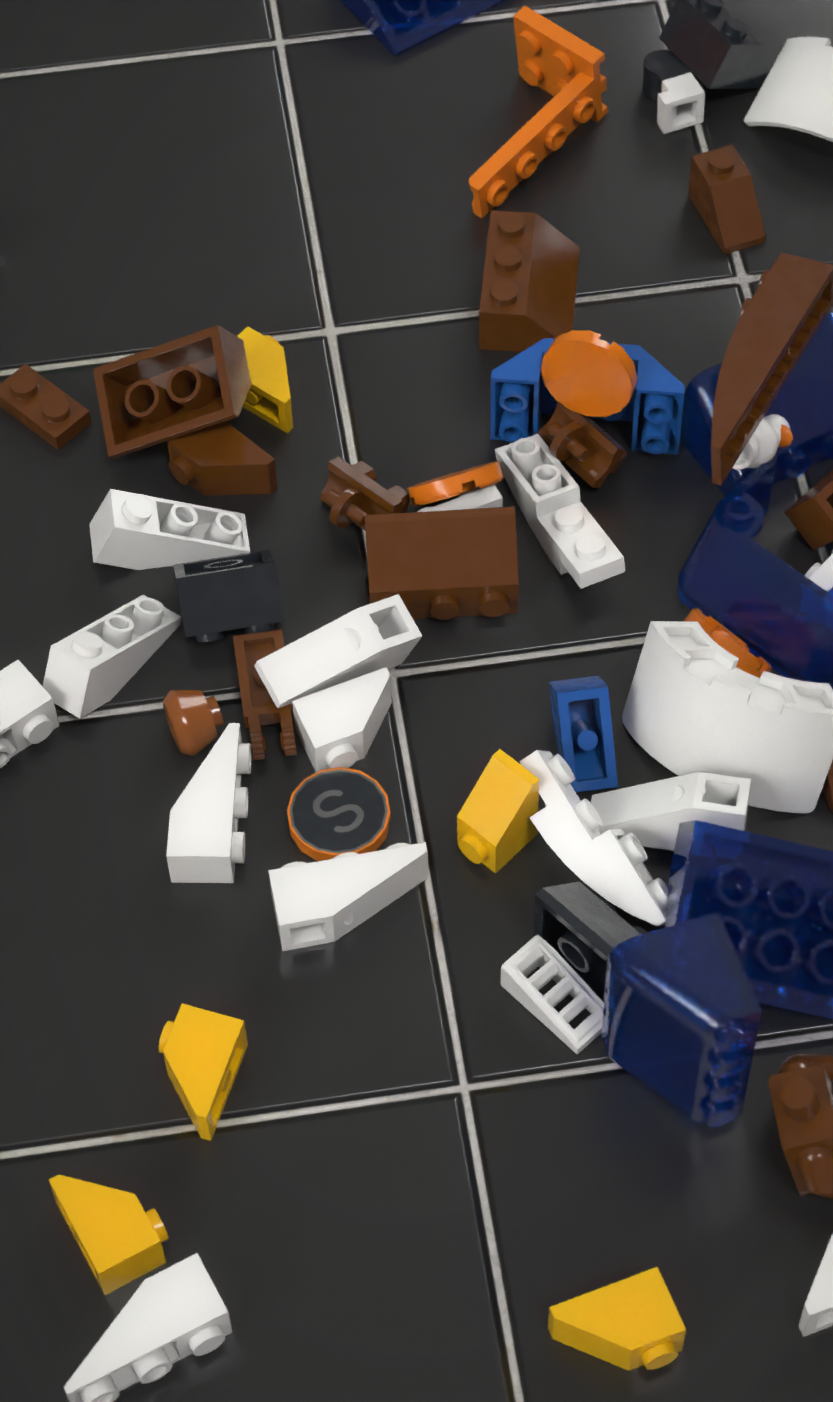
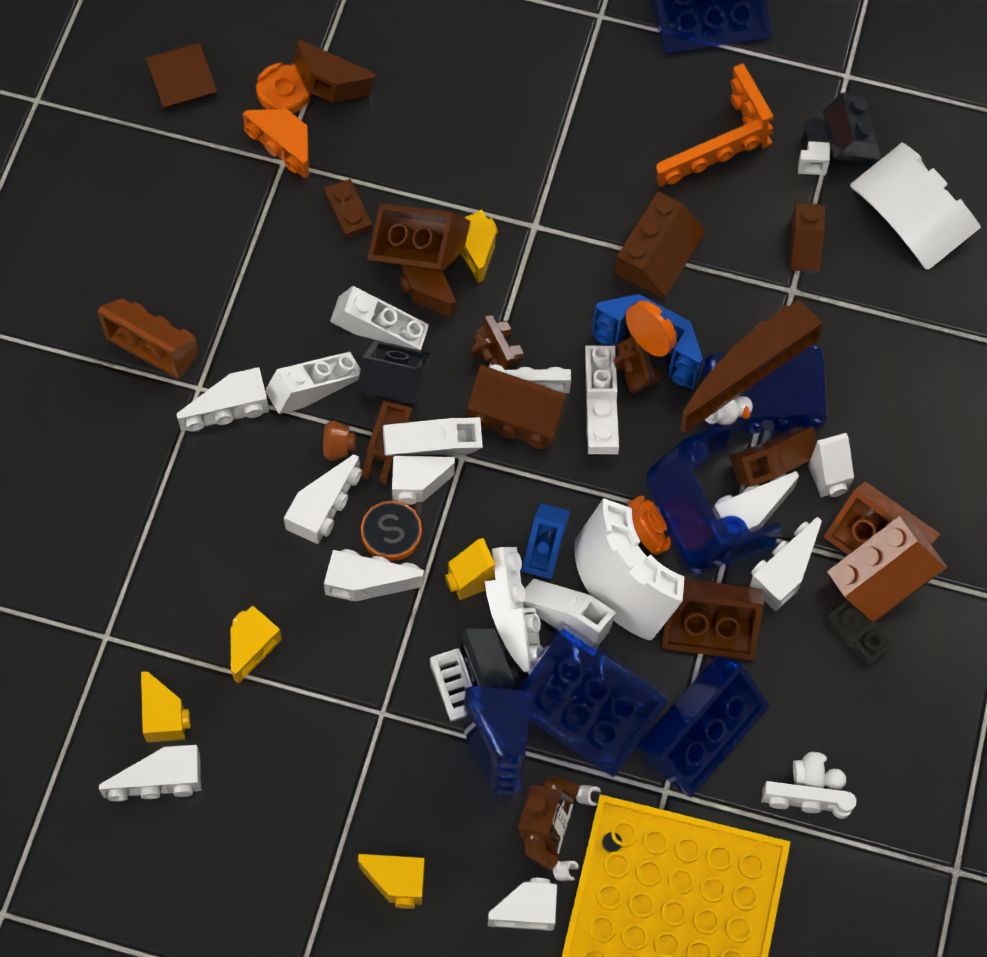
camera: 20 degrees right, 10 degrees up
(455, 483) = (545, 358): orange tile -> none

